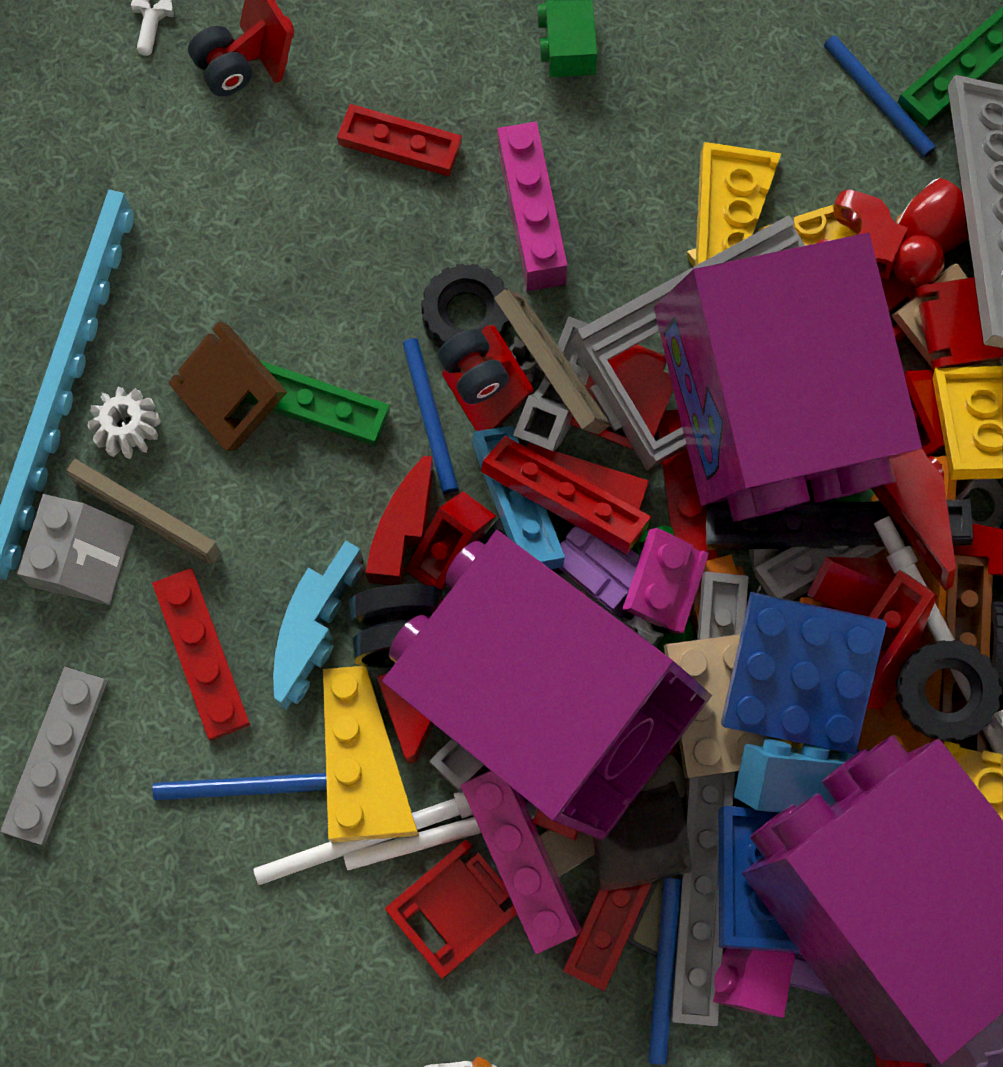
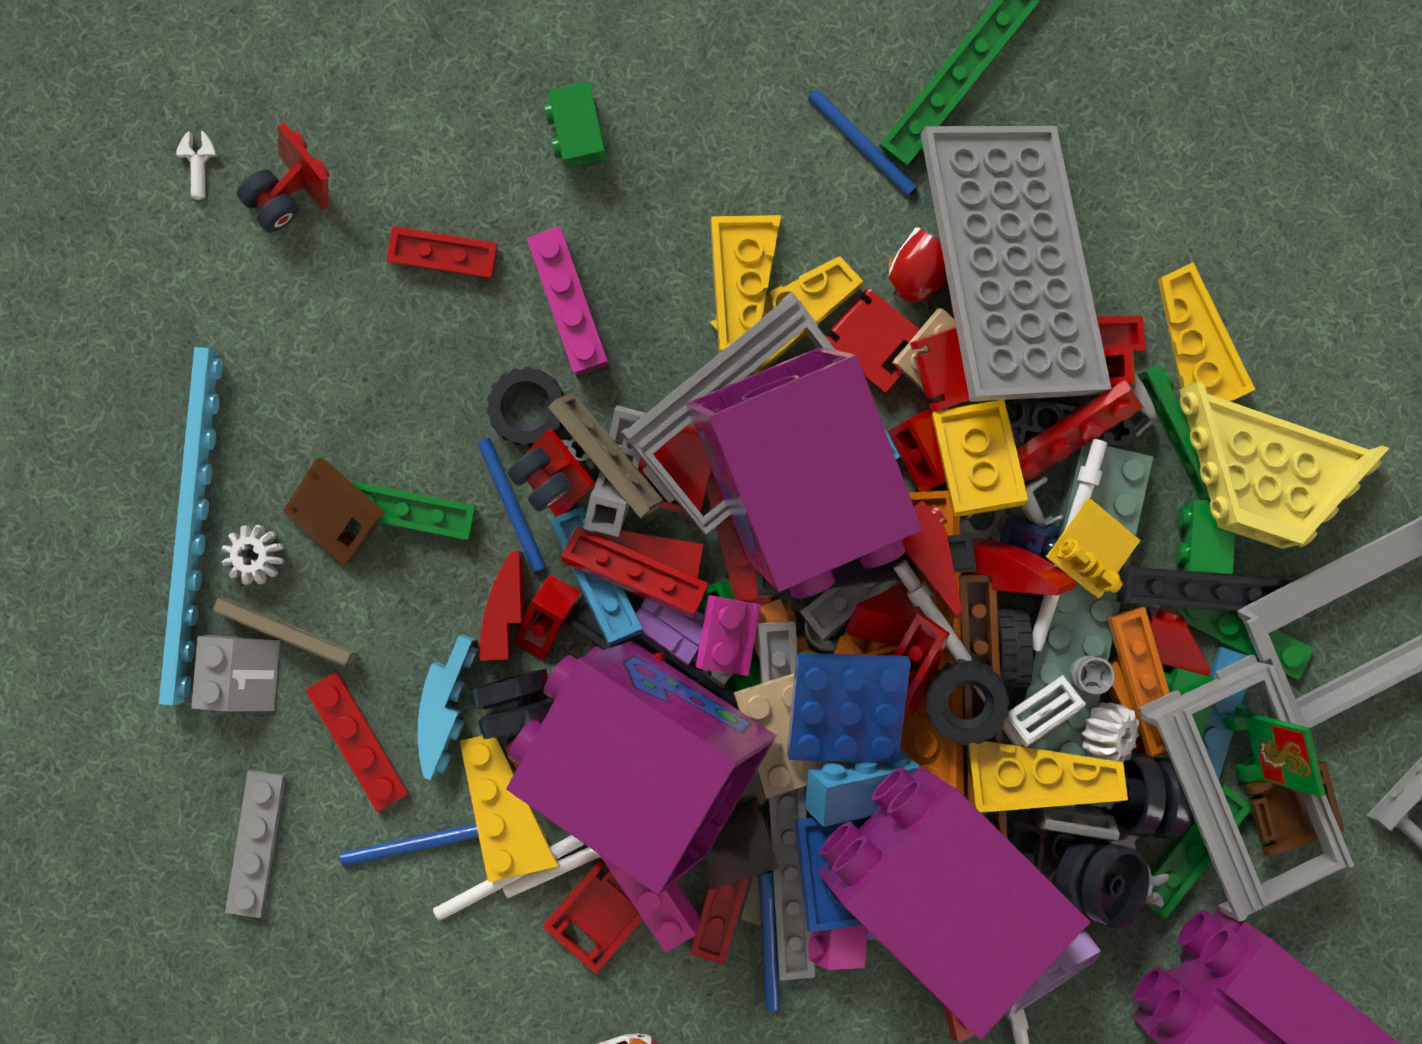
camera: 10 degrees left, 15 degrees up
(912, 259) = (874, 304): red piece -> none

